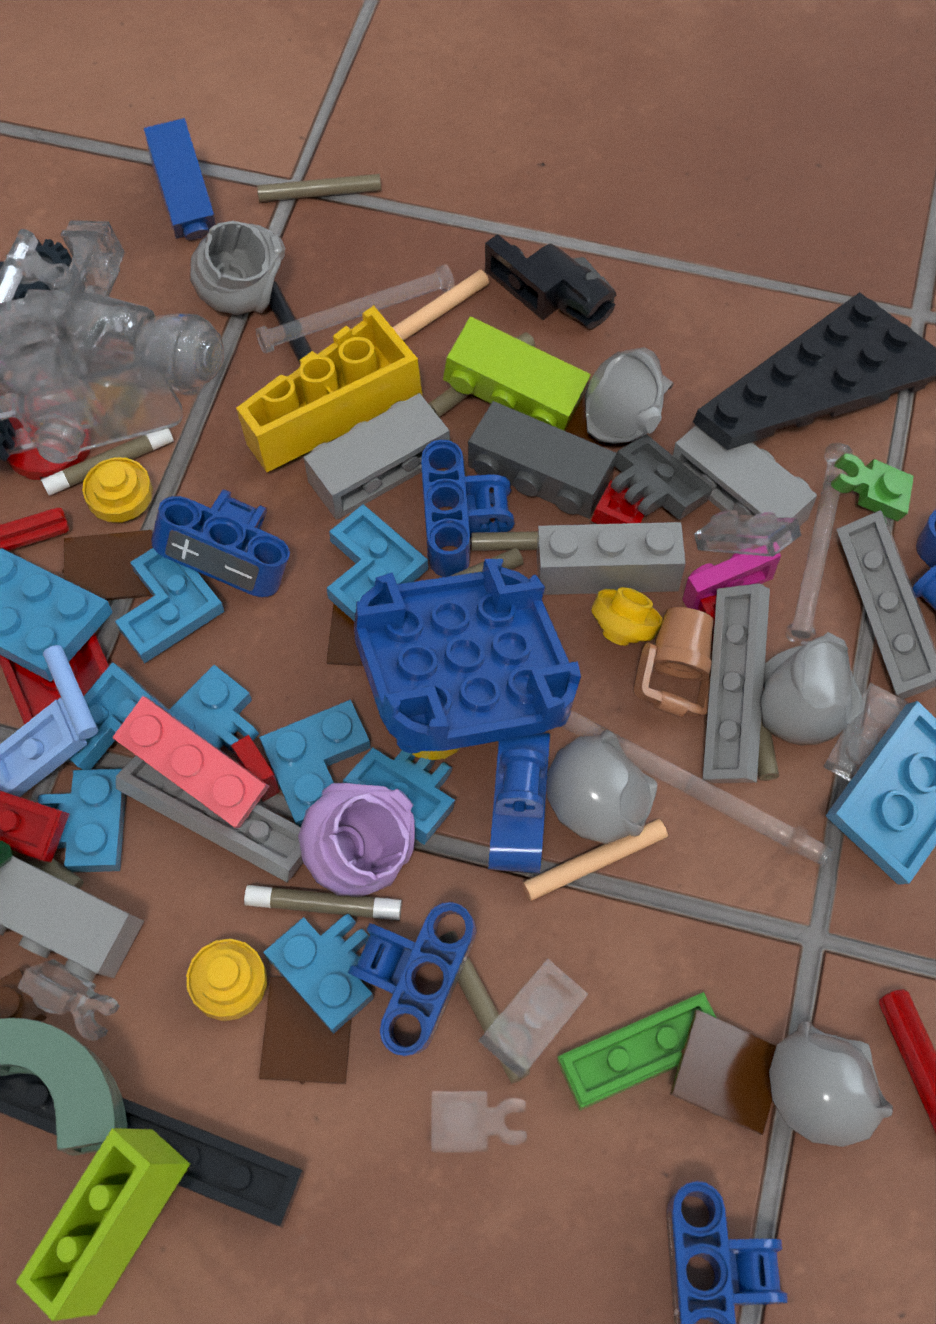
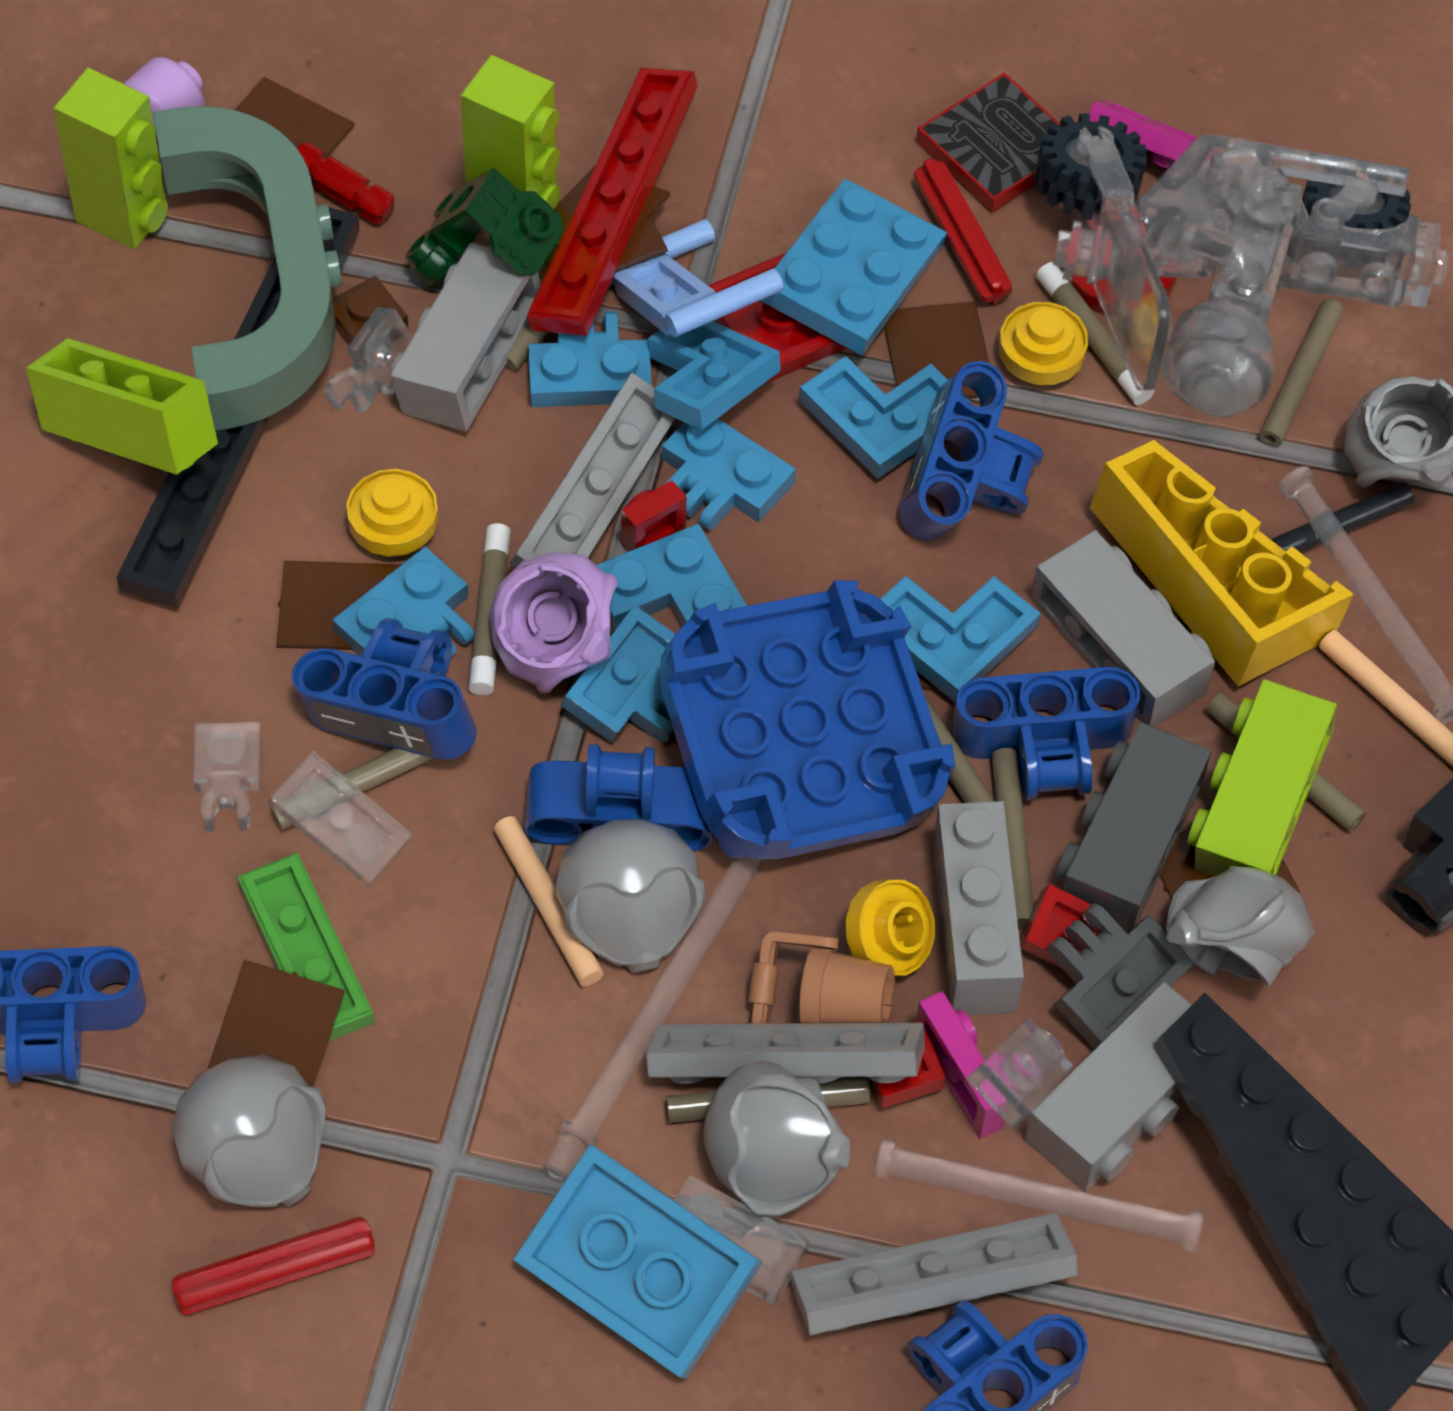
camera: 85 degrees right, 5 degrees down
(190, 762) = (641, 435): coral plate -> none
(877, 483) = (1133, 1282): bright green plate -> none

